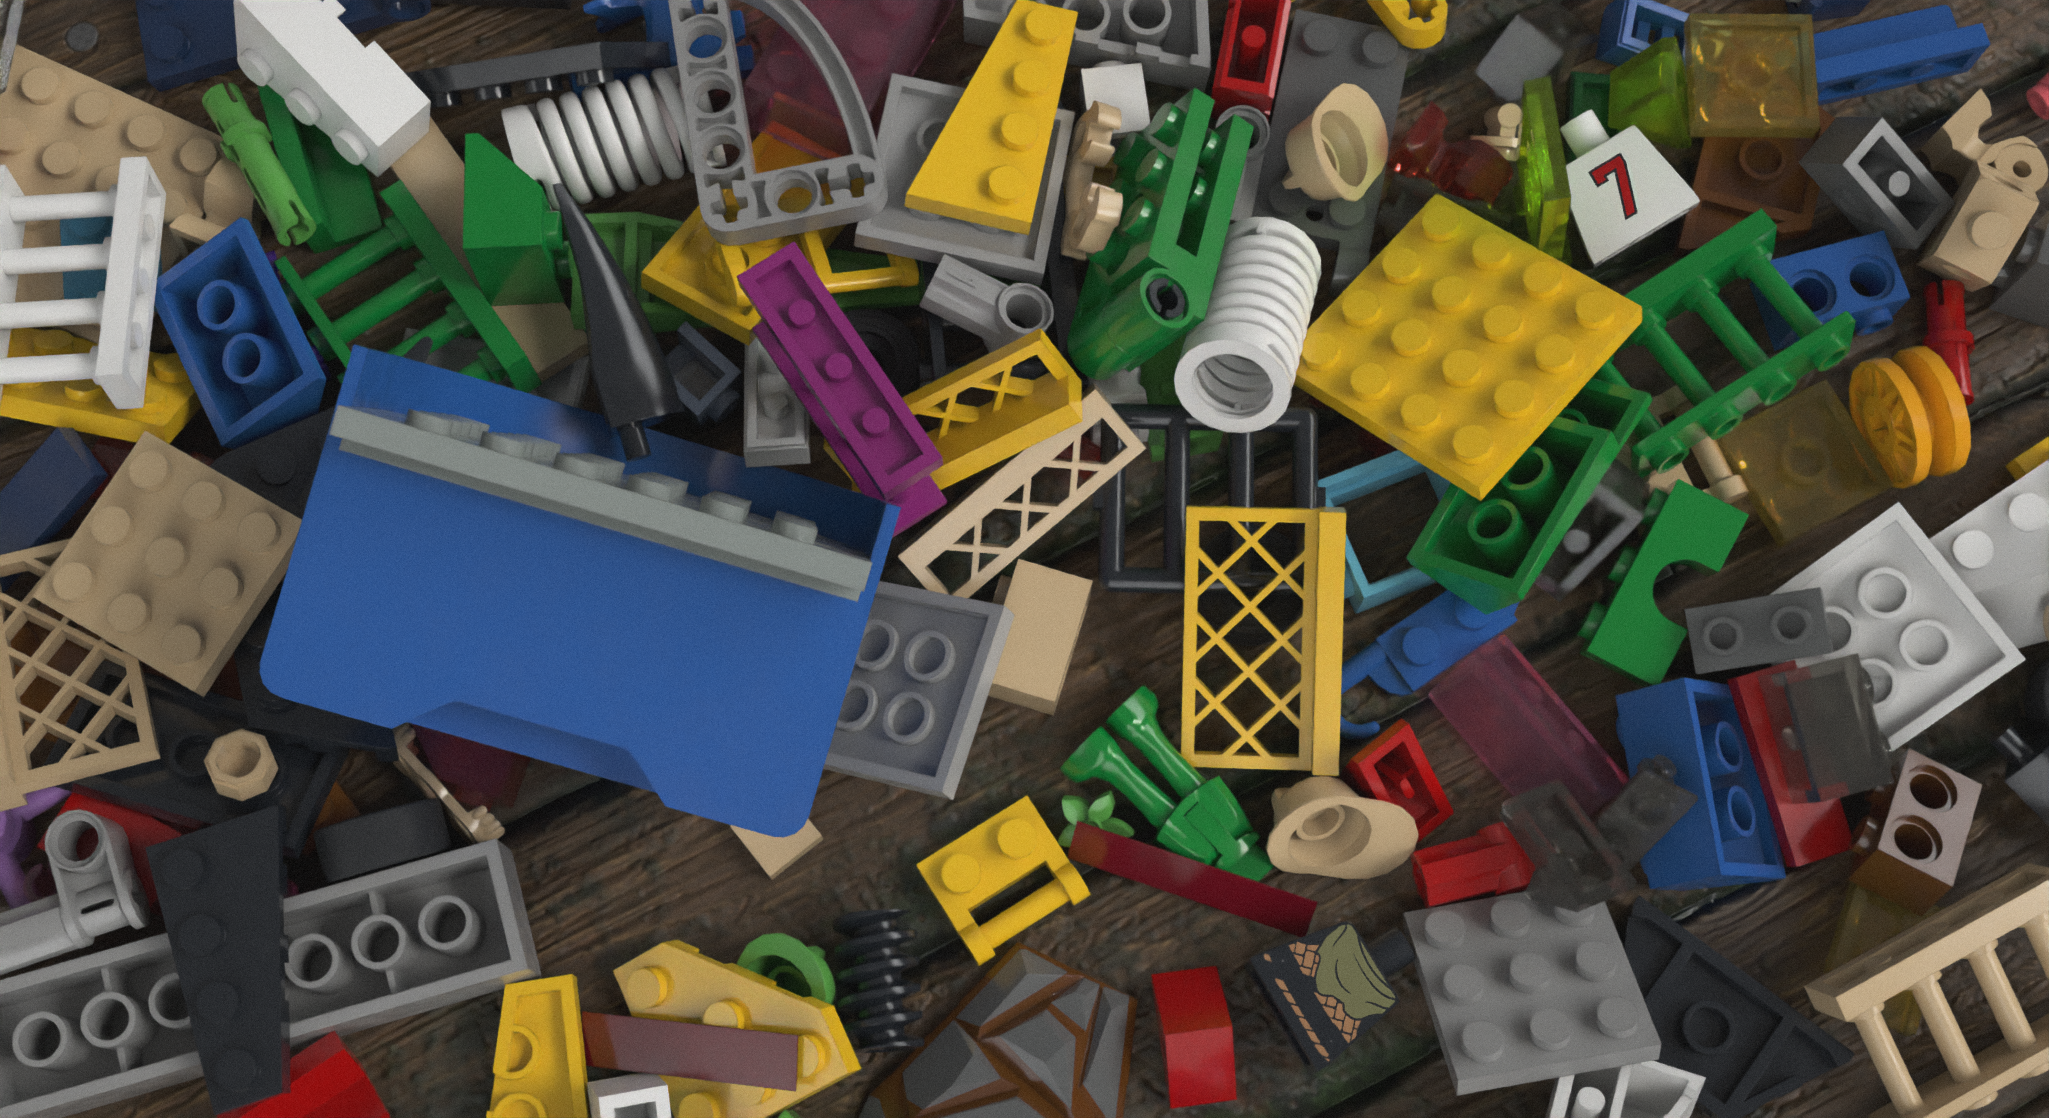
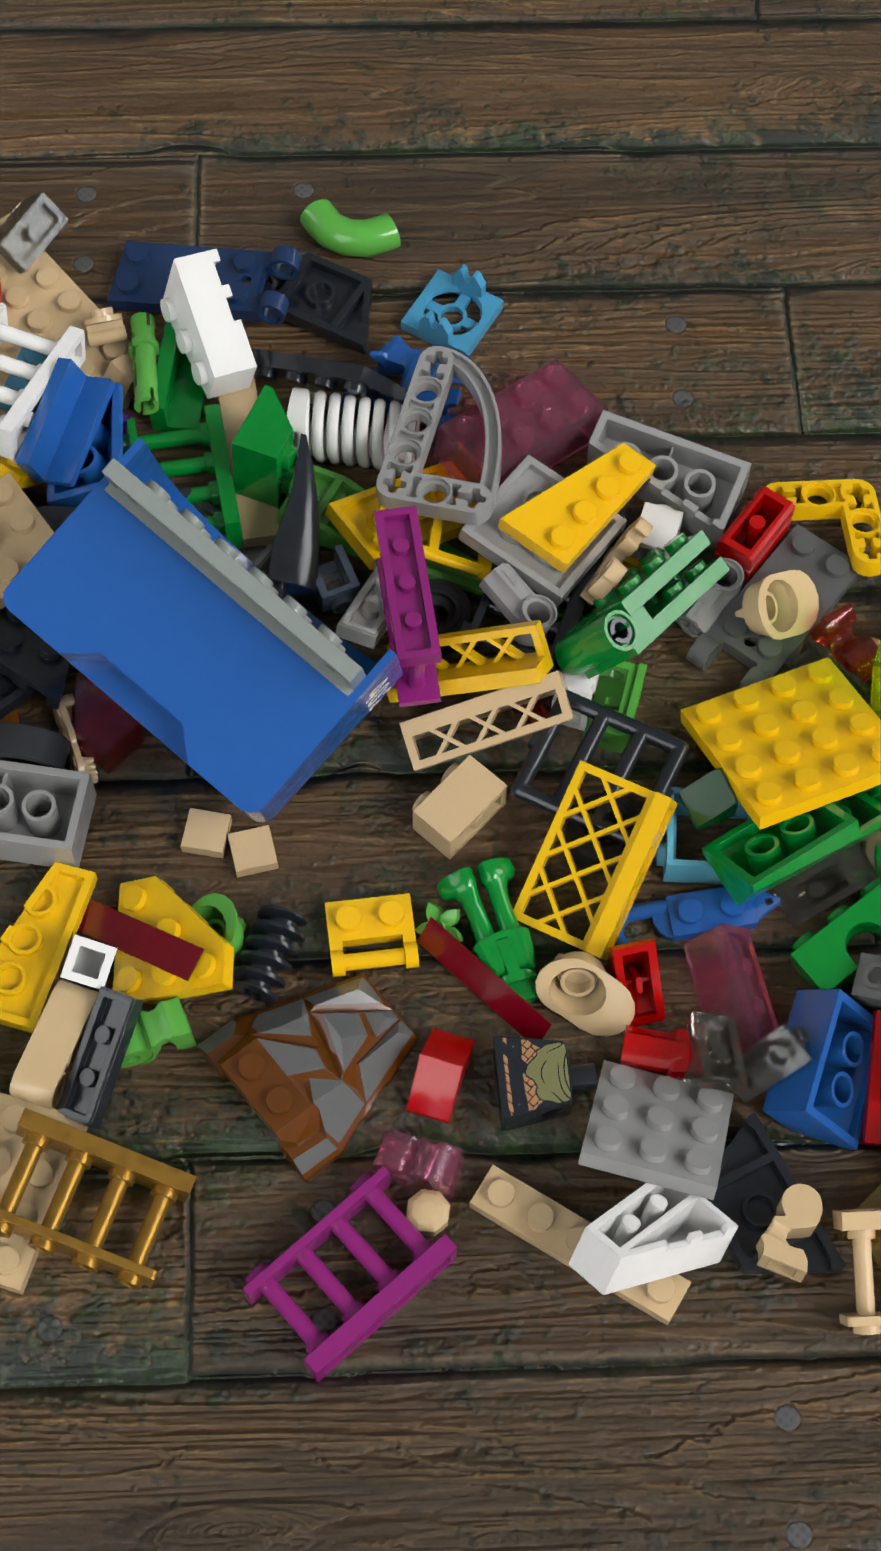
camera: 25 degrees right, 10 degrees down
(169, 130) = (105, 327): none -> tan plate
(191, 318) = (64, 425): none -> blue panel
(695, 842) = (206, 833): none -> tan tile
(918, 688) = (364, 794): light grey plate -> none
(1247, 350) = (671, 678): white piece -> none
(1380, 479) = (709, 799): none -> dark green slope
(1769, 1017) = (796, 1218): none -> tan leg

